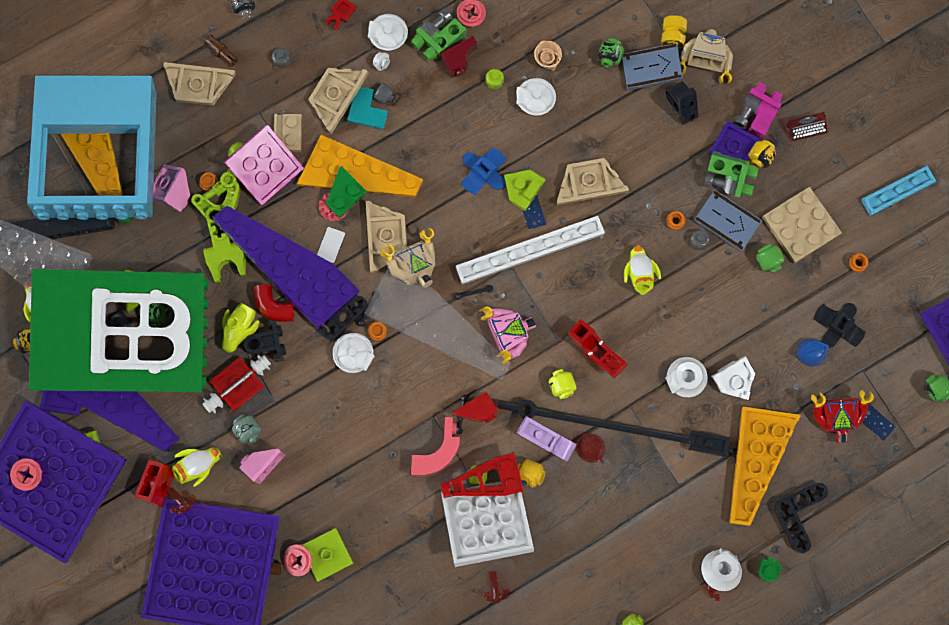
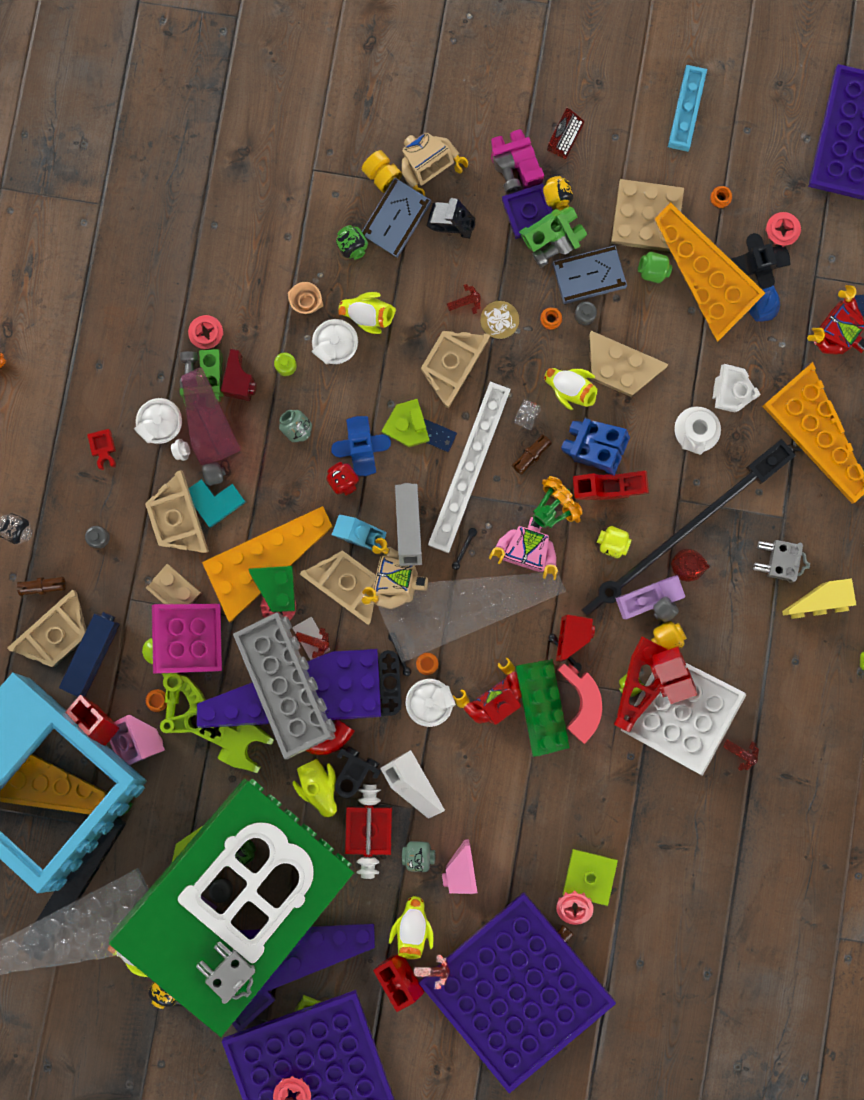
camera: 45 degrees left, 5 degrees up
(71, 363) = (231, 976): none -> light grey piece
(162, 151) = (92, 720): none -> red piece
(202, 115) = (89, 654): none -> dark blue brick
(285, 248) = (284, 685): none -> light grey bracket
(290, 385) = (411, 783): none -> white slope
(332, 253) = (322, 644): none -> clear red piece
(391, 395) = (497, 701): none -> red torso
(412, 63) = (207, 423): none -> clear pink wedge
(412, 427) = (542, 707): none -> green plate
(424, 214) = (357, 532): none -> medium azure slope
(451, 175) = (342, 478): none -> red head
(456, 240) = (408, 524): none -> light grey brick
(459, 118) = (295, 425): none -> sand green head
(502, 496) = (674, 676): none -> piece
(546, 455) = (665, 609): none -> dark grey piece
(563, 317) = (545, 515): none -> plant
(574, 101) = (368, 312): none -> animal
(574, 283) = (531, 454): none -> reddish brown pin
(597, 257) = (527, 414): none -> clear leg
(616, 319) = (597, 444): none -> blue hips
(638, 156) = (474, 298): none -> clear red piece
(645, 189) = (499, 319): none -> pearl gold sticker
(650, 509) = (786, 561): none -> light grey piece
(650, 557) = (828, 595): none -> light yellow slope
(684, 292) = (621, 366): none -> tan wing
(796, 303) = (713, 278): none -> light orange wing
(883, 322) = (789, 222): none -> coral gear

